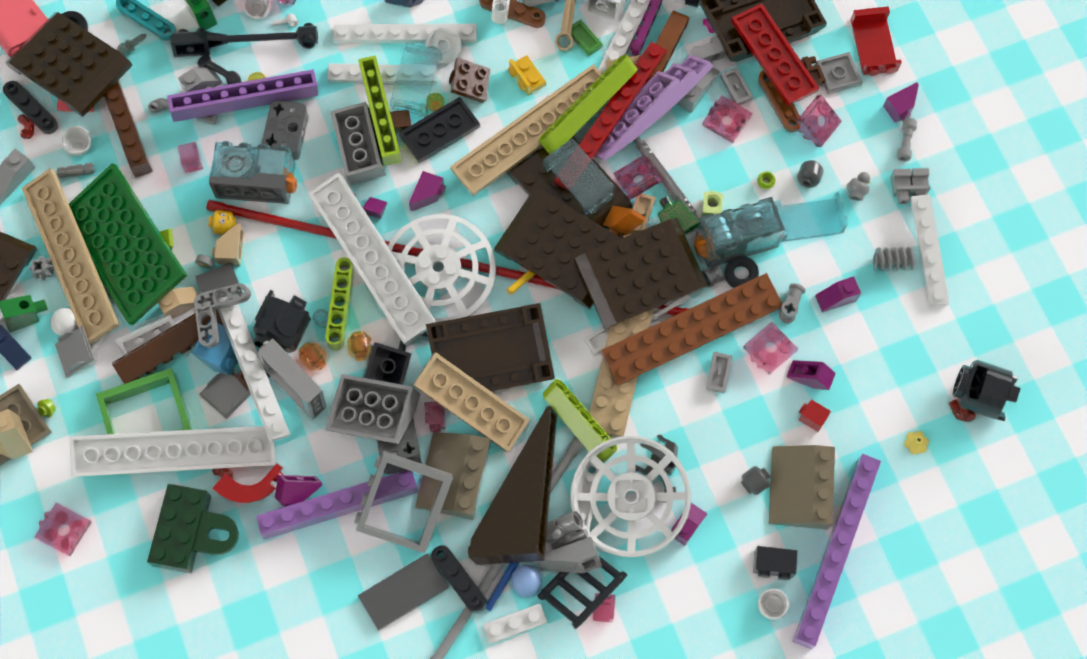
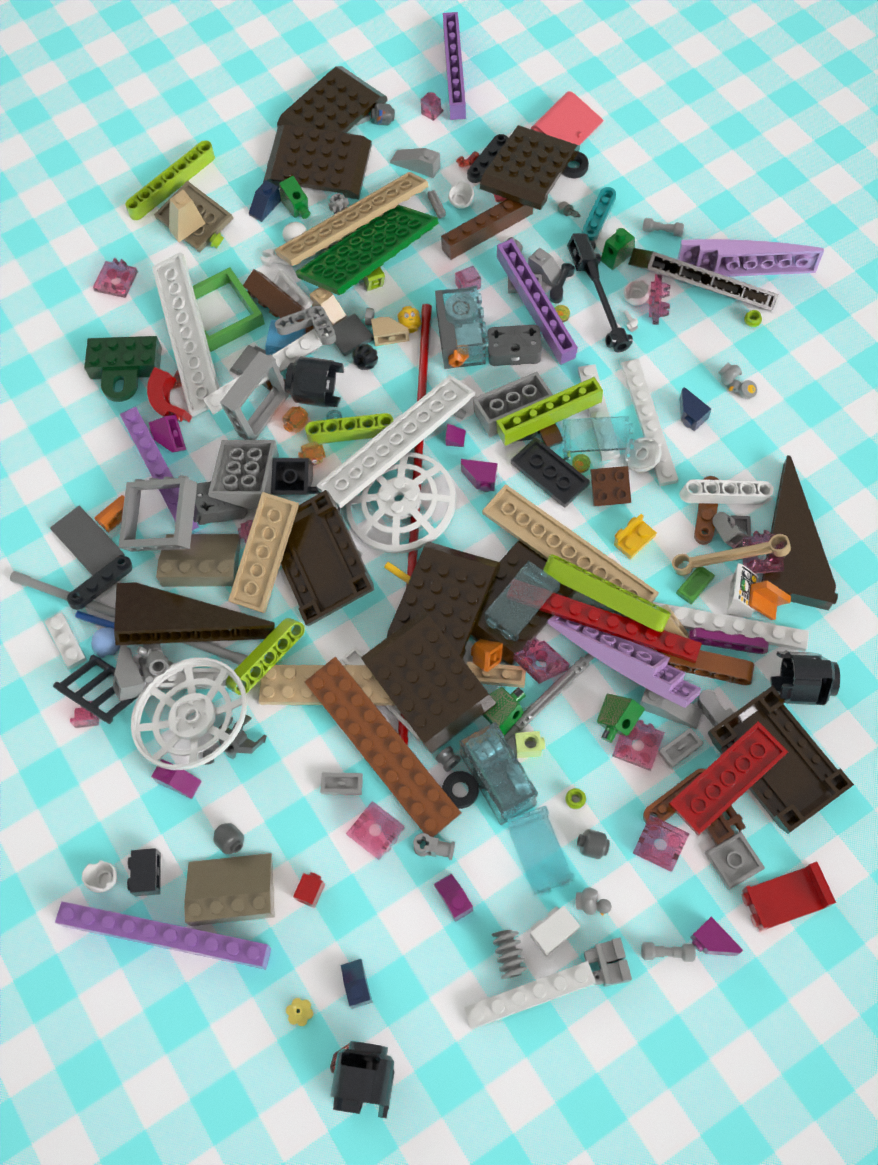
camera: 85 degrees right, 5 degrees down
(74, 351) = (268, 245): light grey piece -> none
(258, 273) = (365, 357): none -> black piece
(375, 559) = (111, 515): none -> orange panel
(702, 125) = (618, 716): none -> green torso
(811, 374) = (354, 880): magenta slope -> none
(878, 220) = (554, 930): none -> white brick
(901, 388) = (356, 984): none -> dark blue slope

